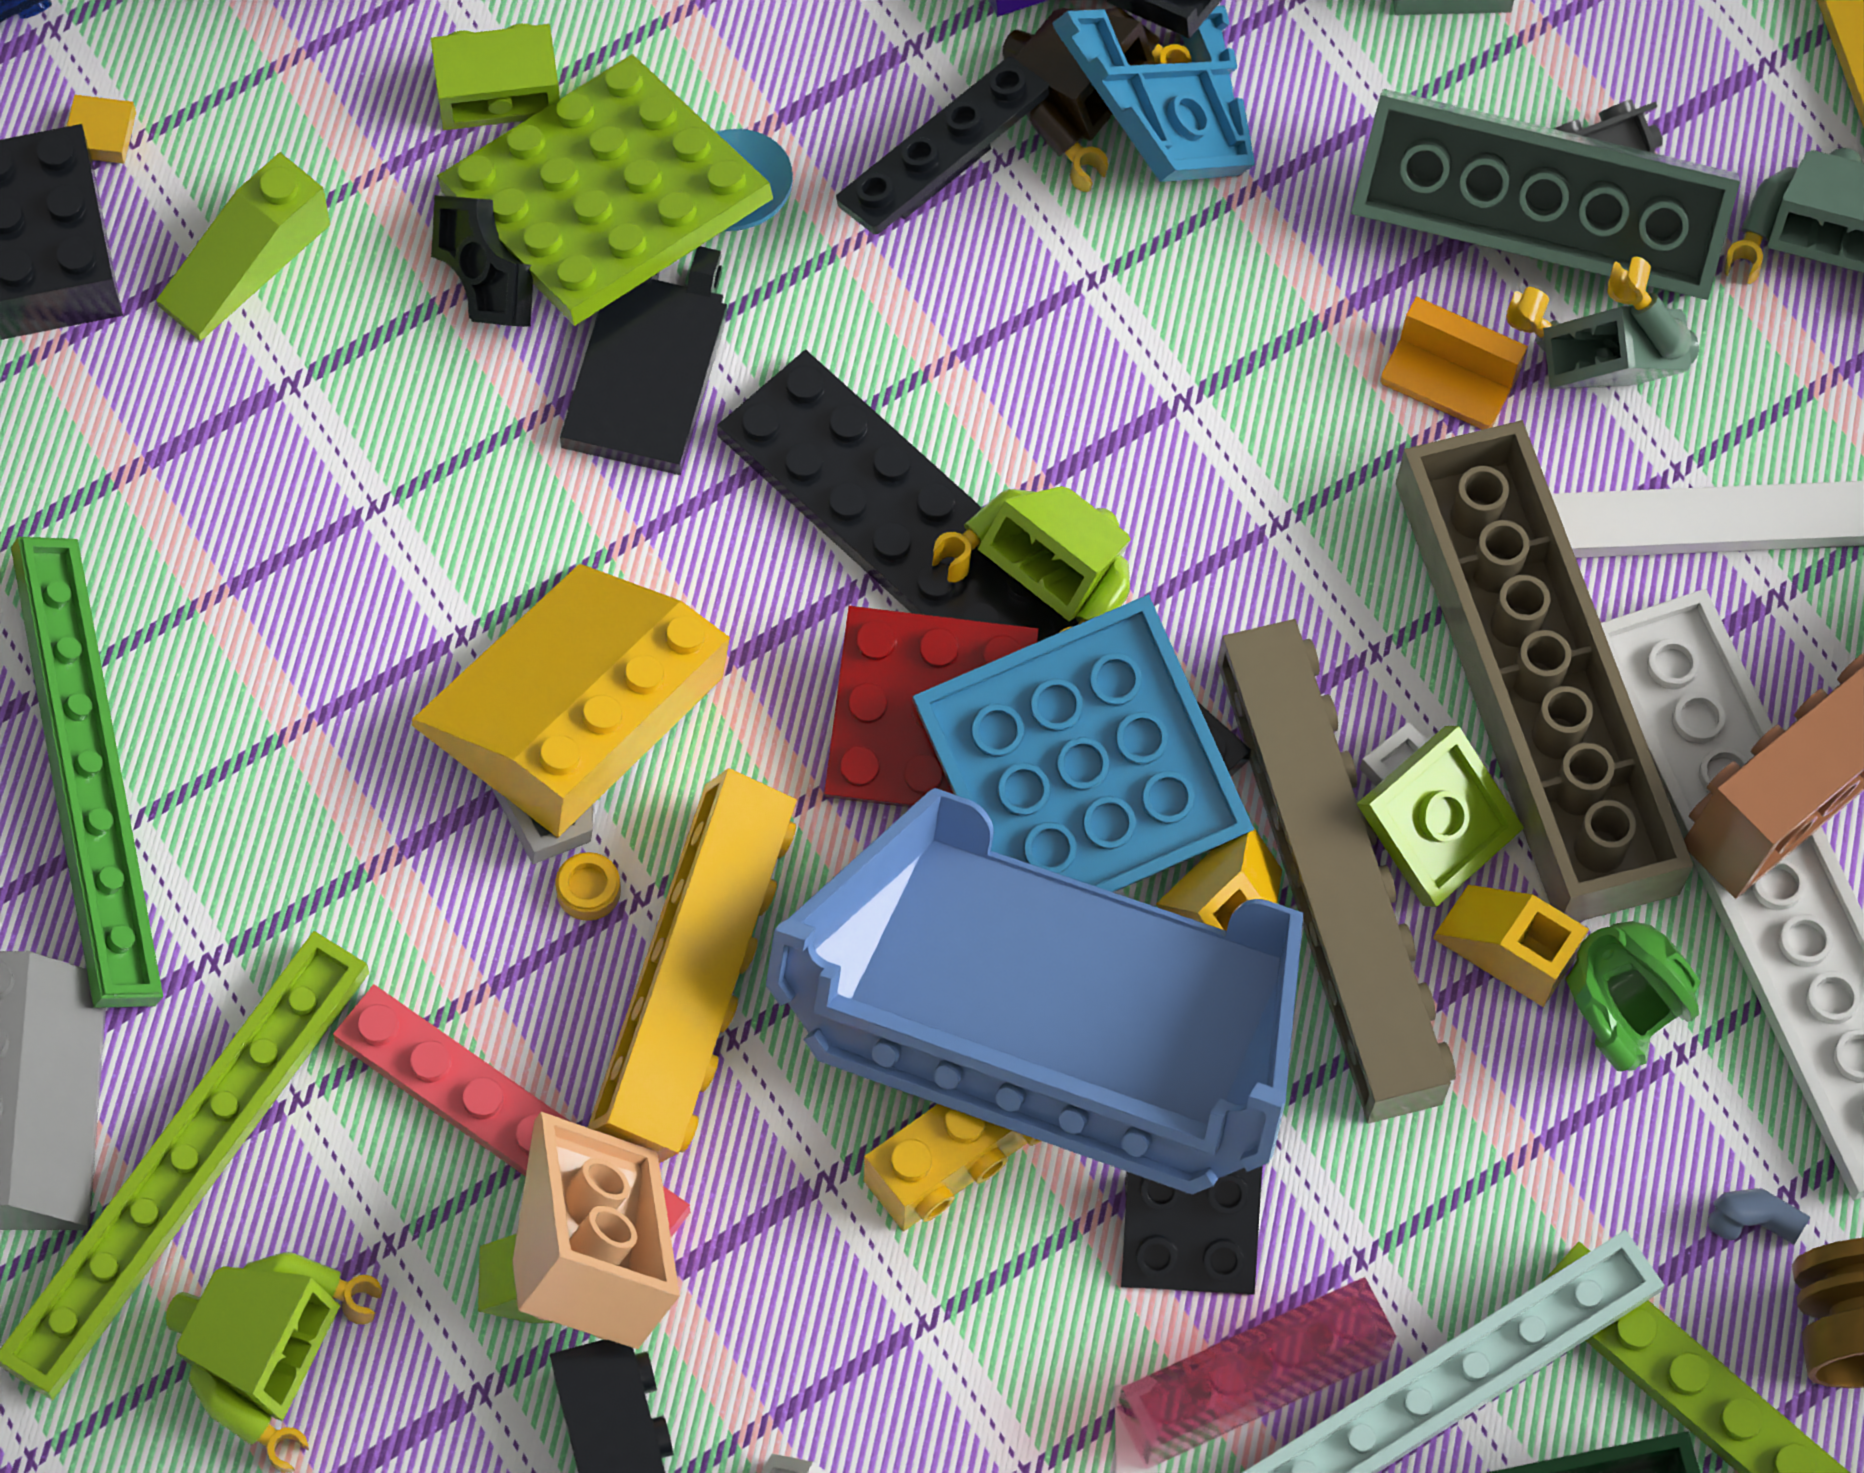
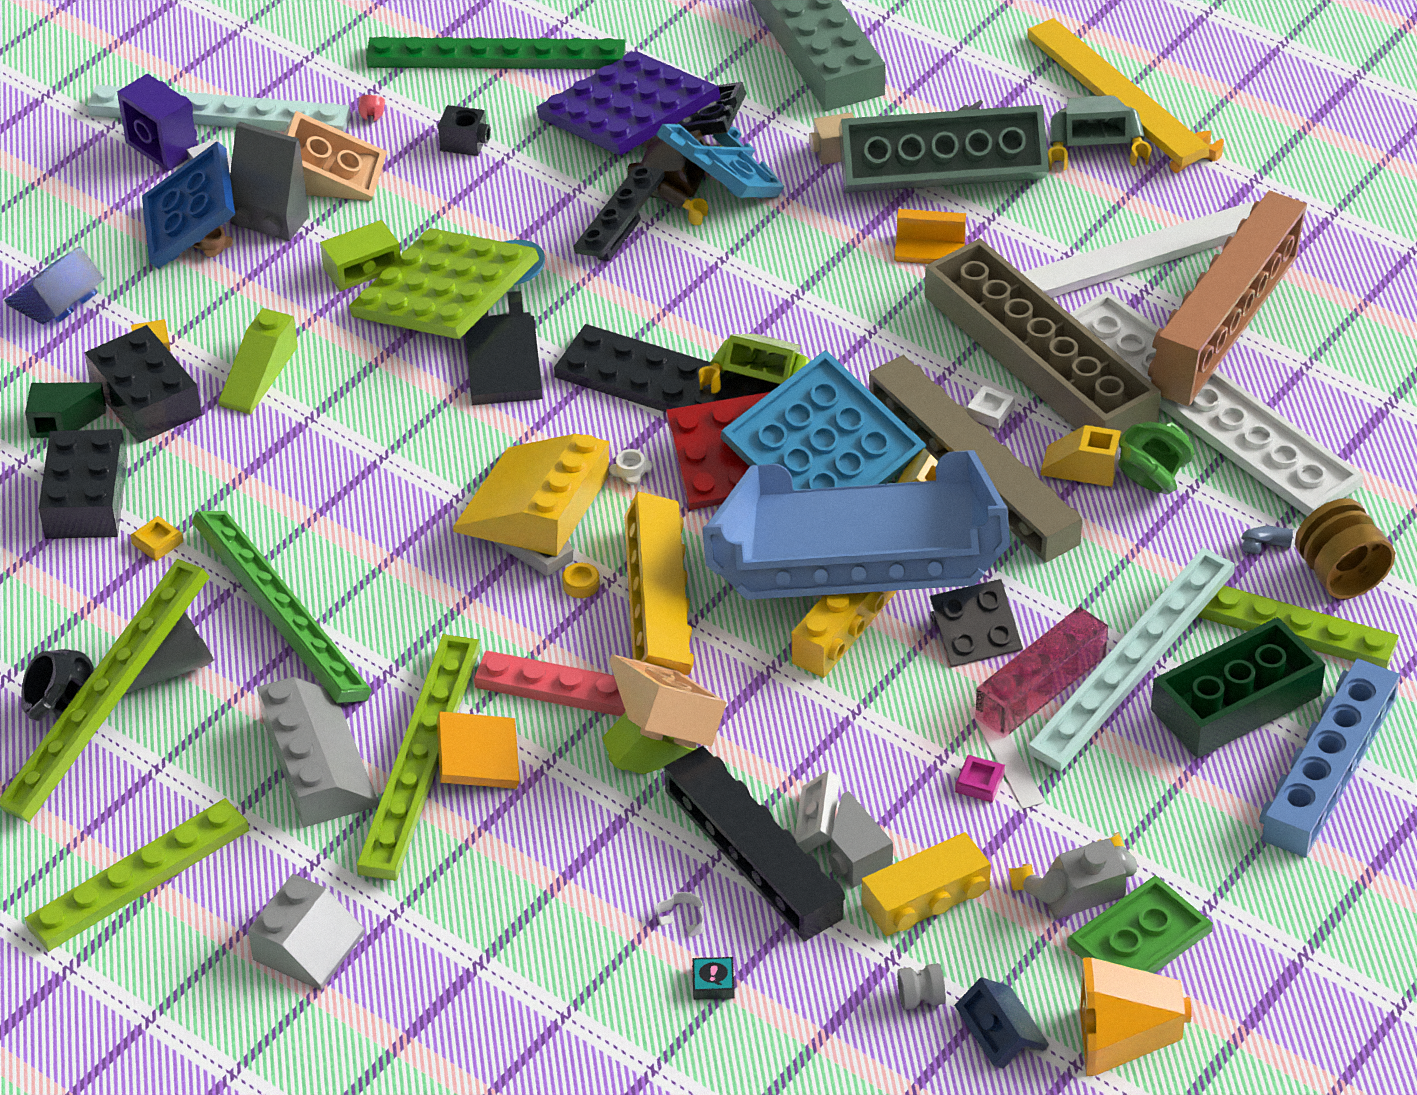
camera: 15 degrees left, 20 degrees down
(258, 1337) = (500, 813): lime torso -> none
(275, 1189) = (477, 750): none -> light orange tile
(494, 280) = (404, 338): black tile -> none
(760, 662) = (630, 466): none -> white plate
(1367, 75) = (826, 138): none -> tan brick
(1440, 816) = (1019, 416): lime plate -> none
(1614, 345) = (1012, 199): sand green torso -> none

